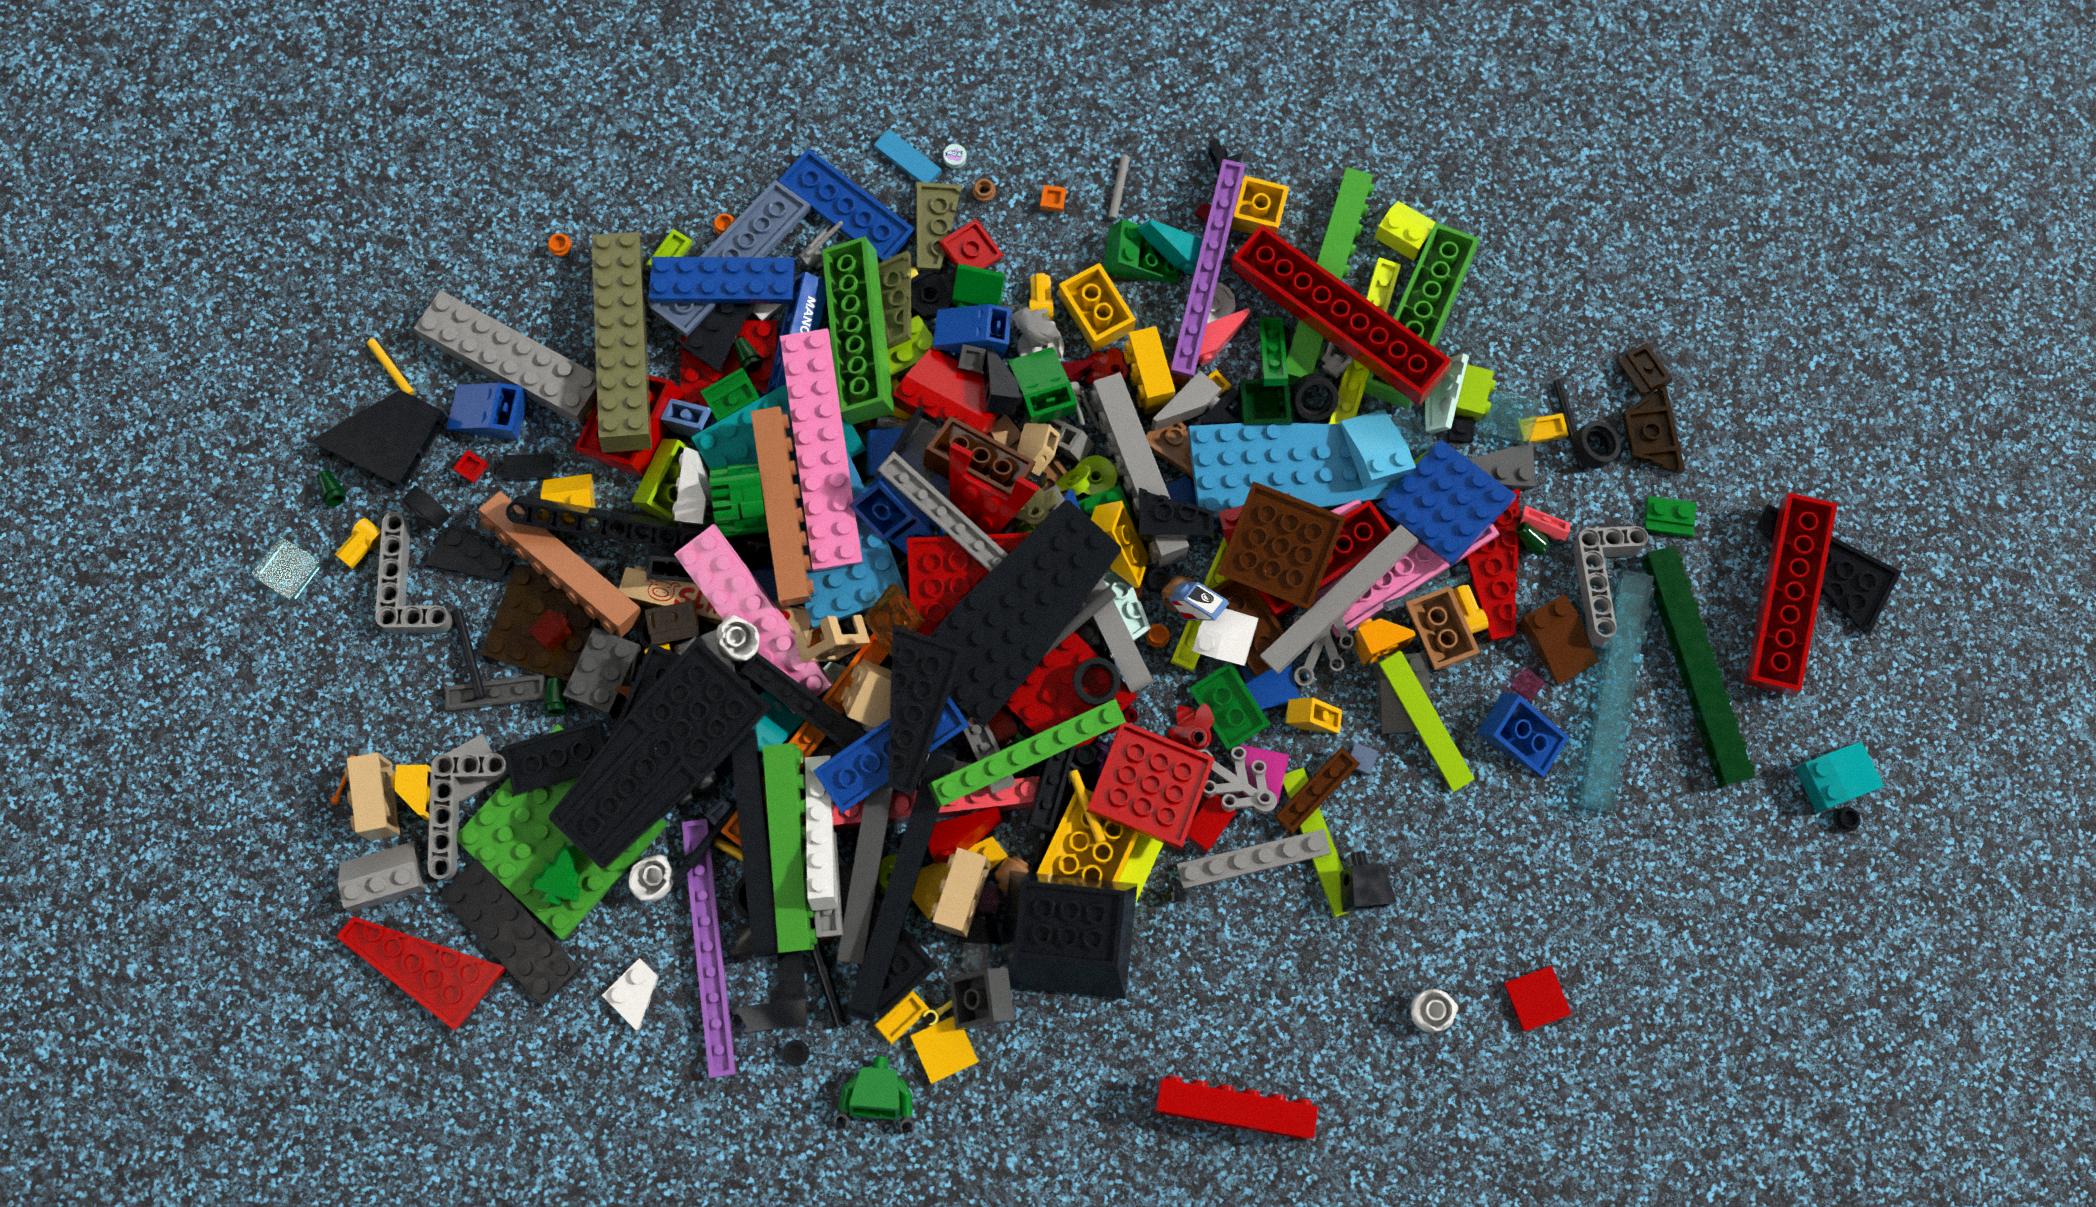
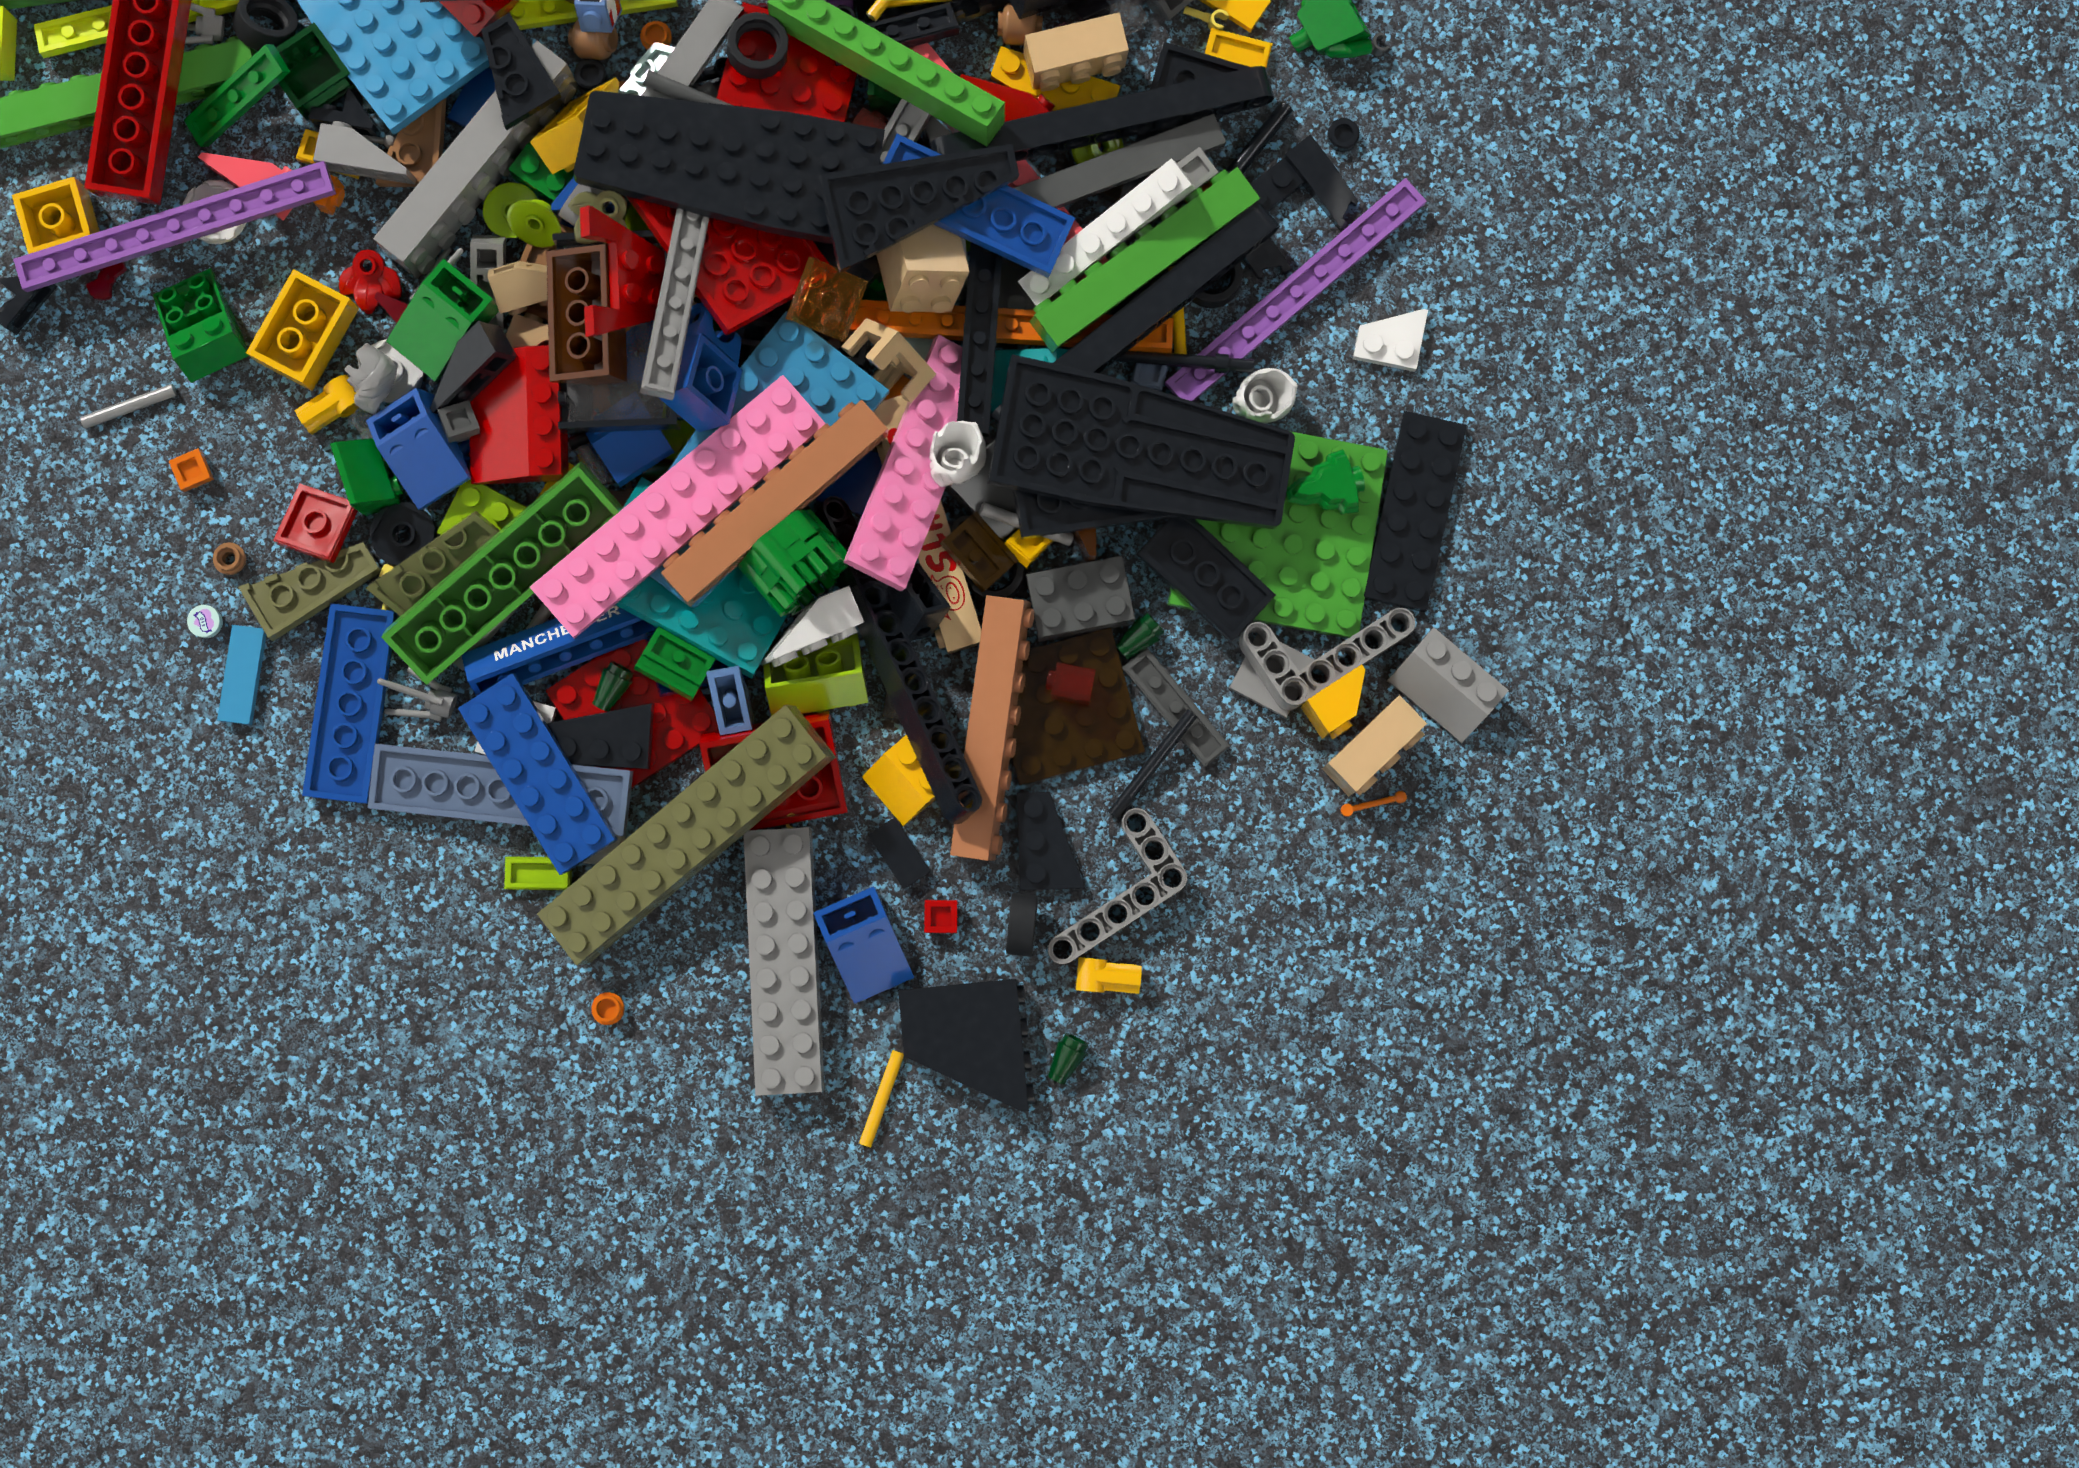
camera: 120 degrees left, 10 degrees up
(286, 569) = (1188, 1040): clear light blue tile -> none
(432, 974) = (1509, 555): red wing -> none
(722, 222) = (461, 832): orange plate -> none
(1149, 370) = (345, 220): yellow brick -> none
(1175, 245) = (169, 283): teal slope -> none

